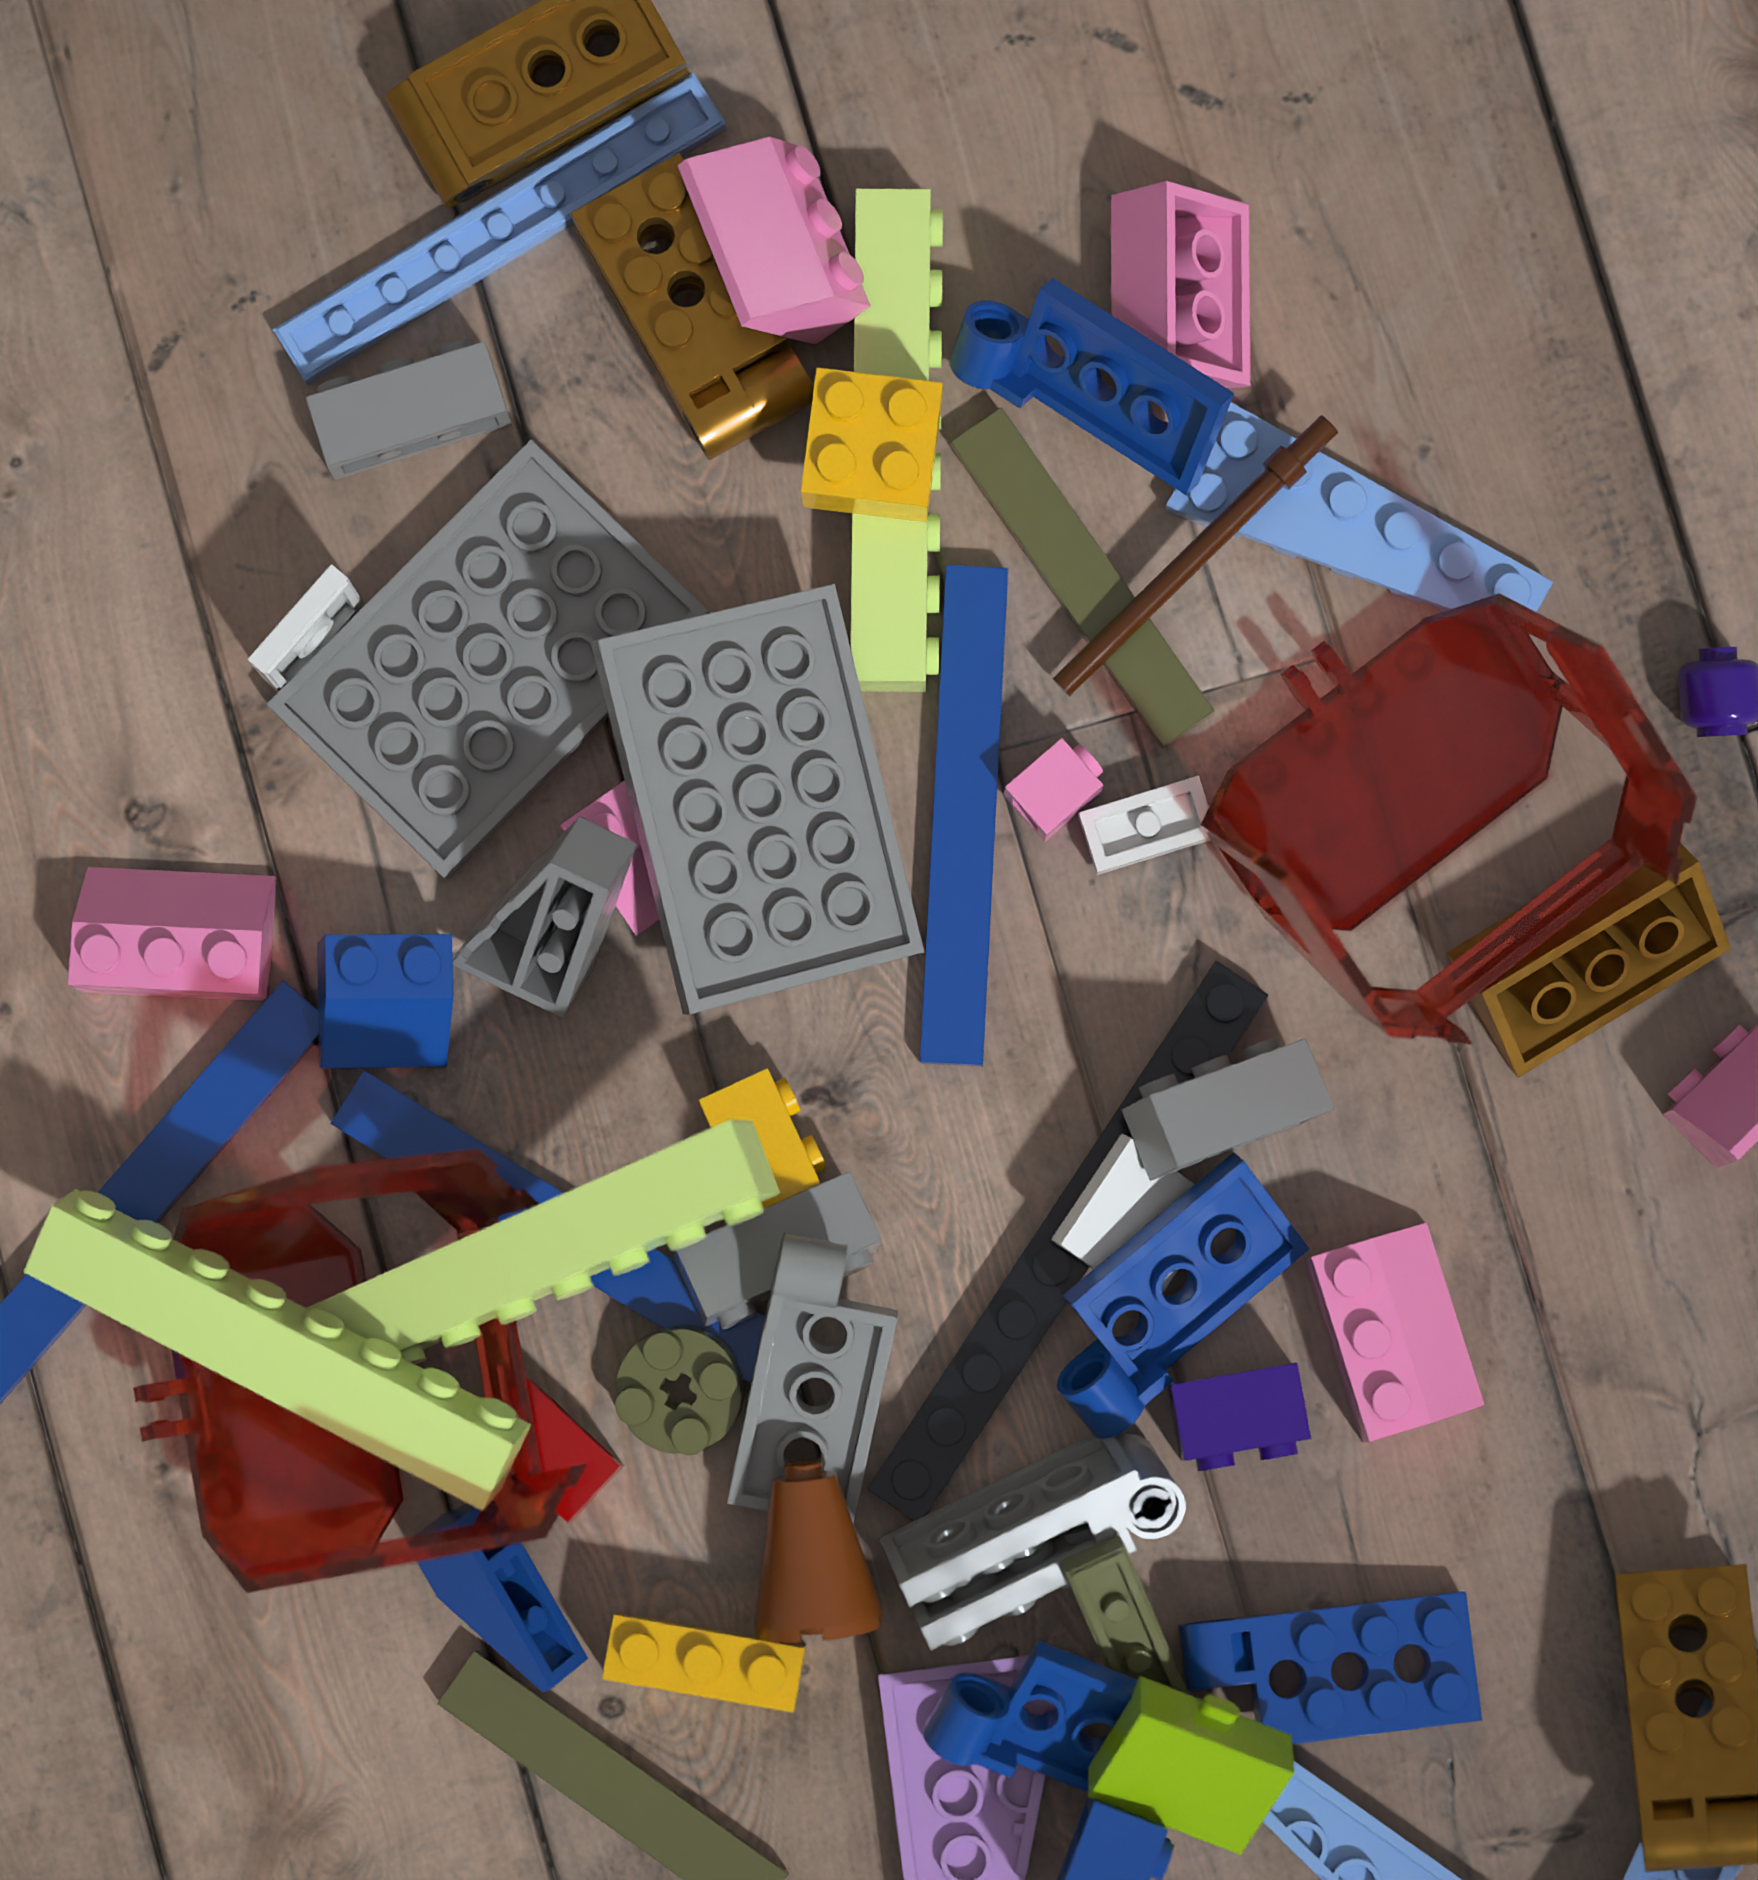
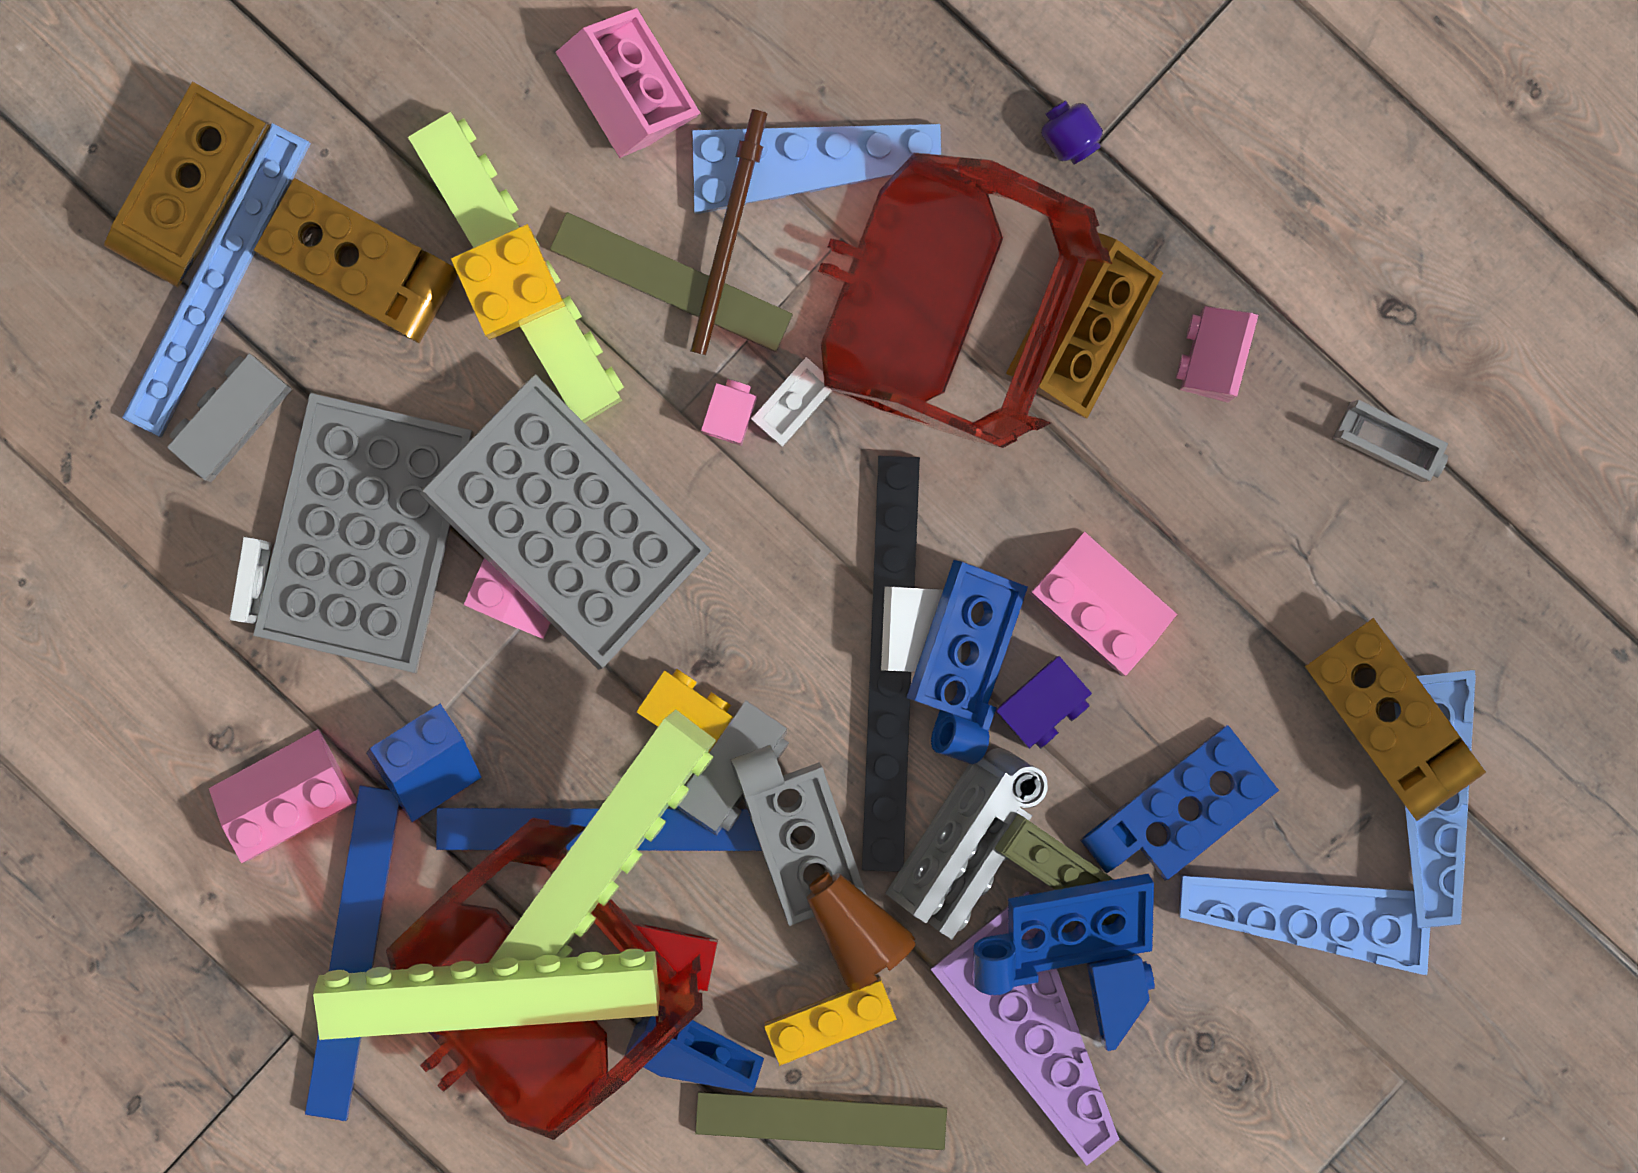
camera: 35 degrees left, 5 degrees up
(552, 920) = (491, 662): light grey wedge -> none
(645, 1401) = (709, 897): olive plate -> none
(775, 238) = (380, 194): bright pink slope -> none
(964, 816) = (687, 458): blue tile -> none
(1013, 359) = (558, 181): blue hinge -> none
(1192, 1765) = (1134, 914): lime container -> none
(1226, 1105) = (933, 536): light grey brick -> none

